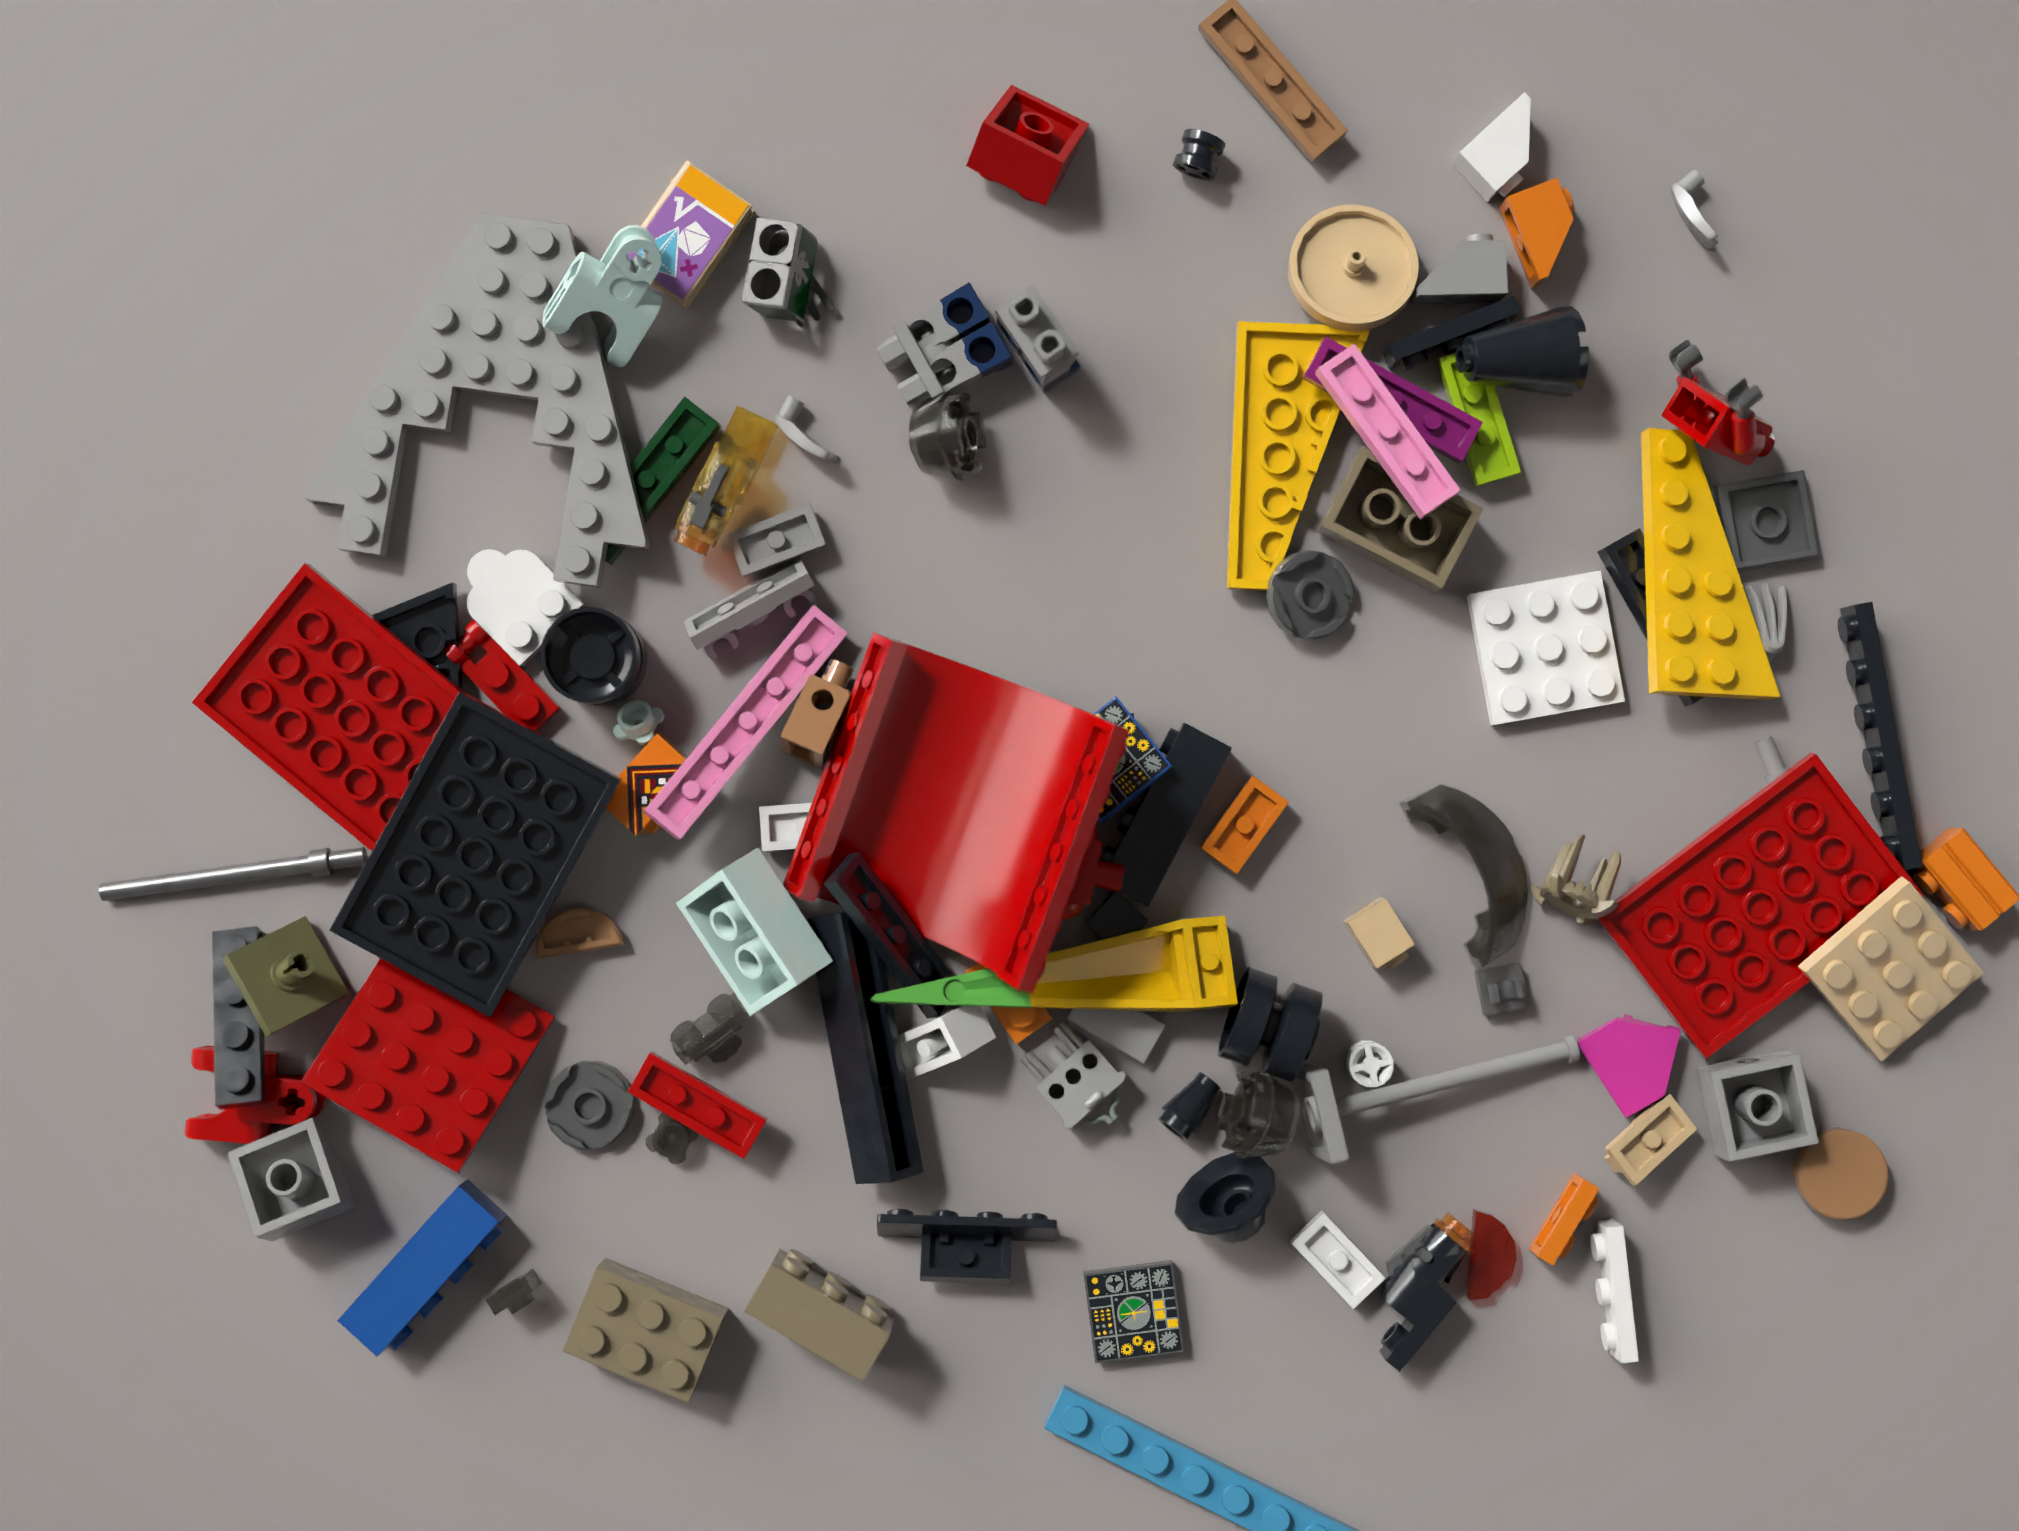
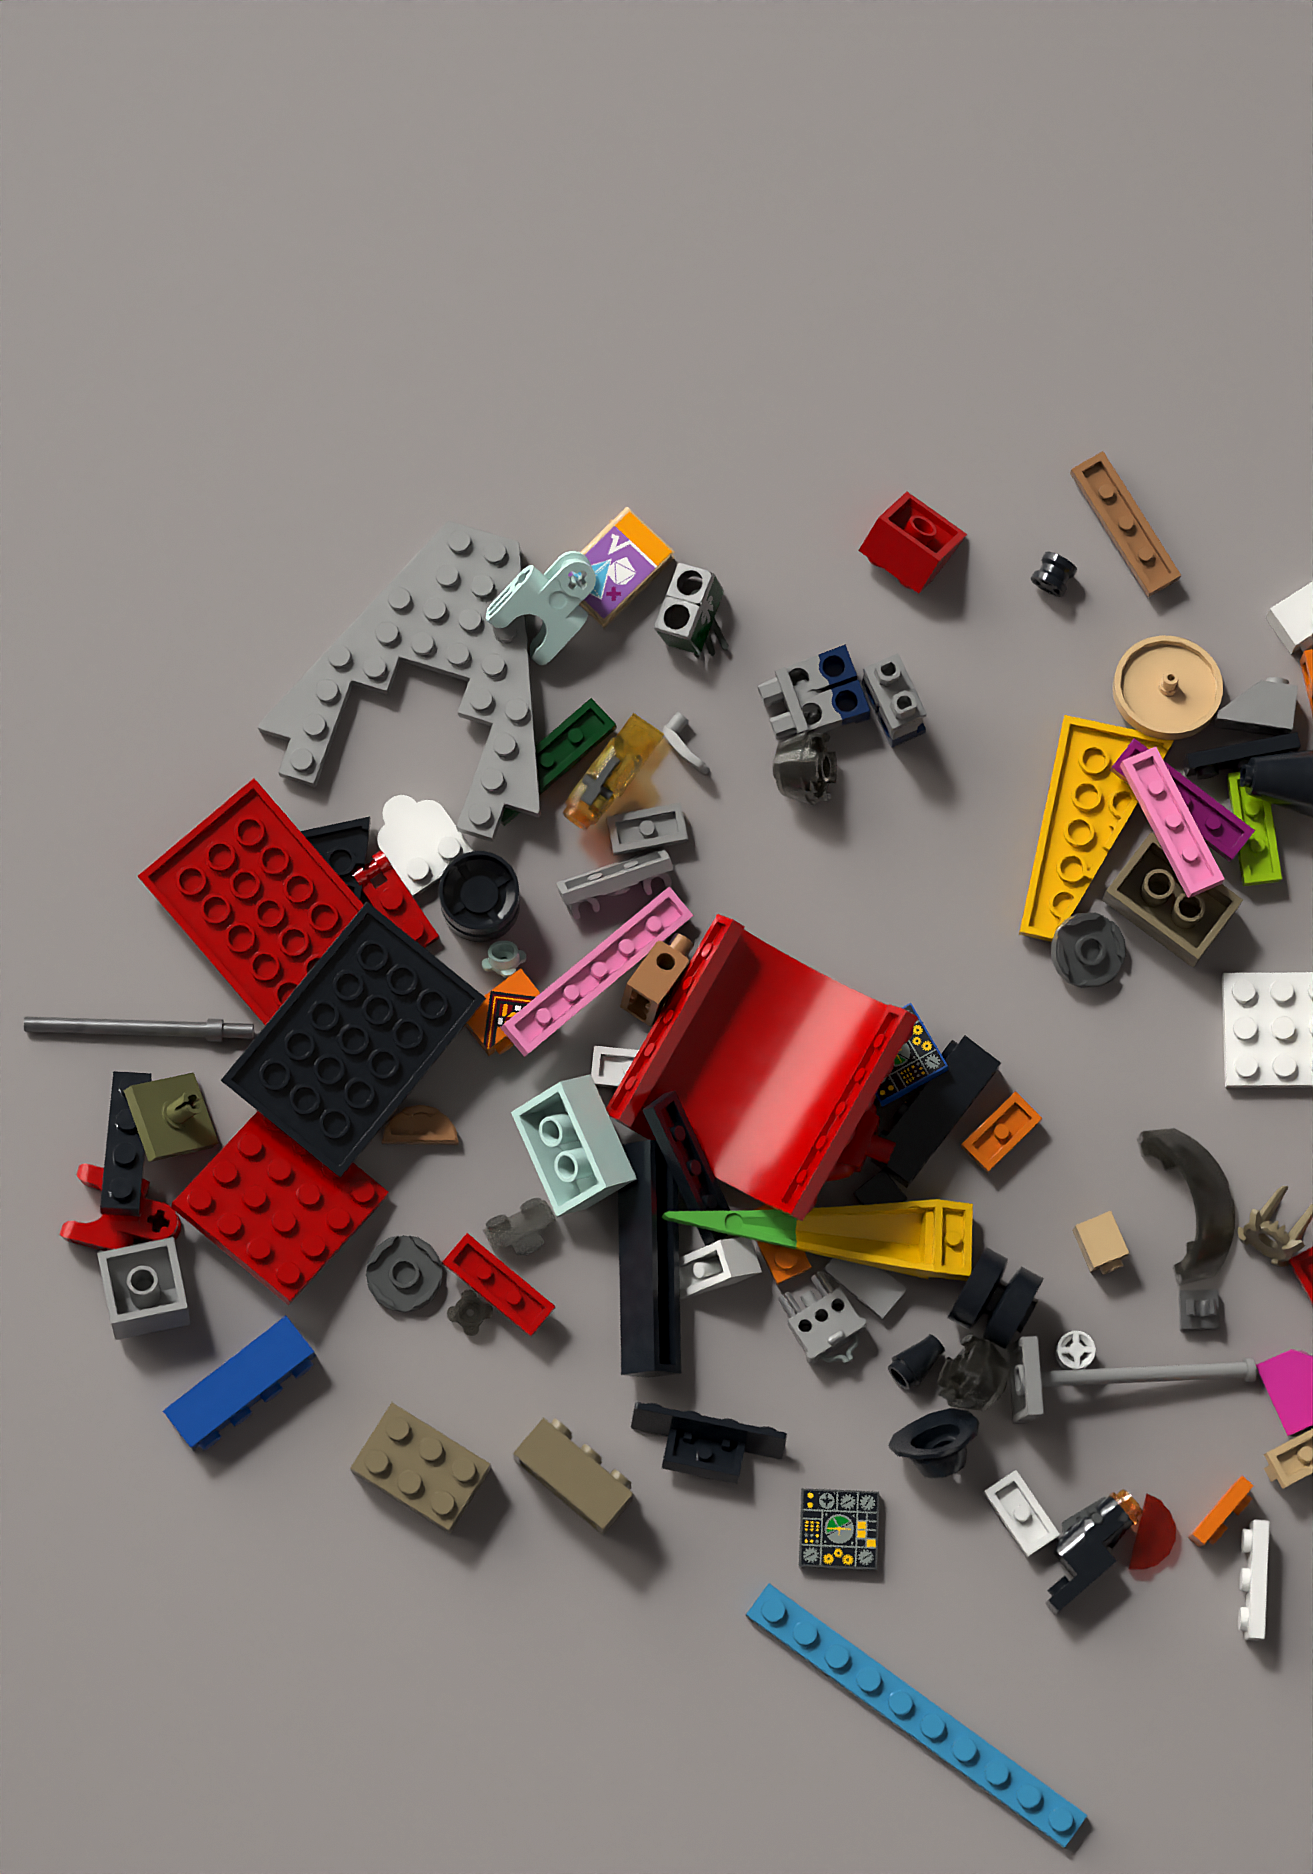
camera: 10 degrees right, 10 degrees down
(514, 1294) = (314, 1419): clear smoke plate -> none

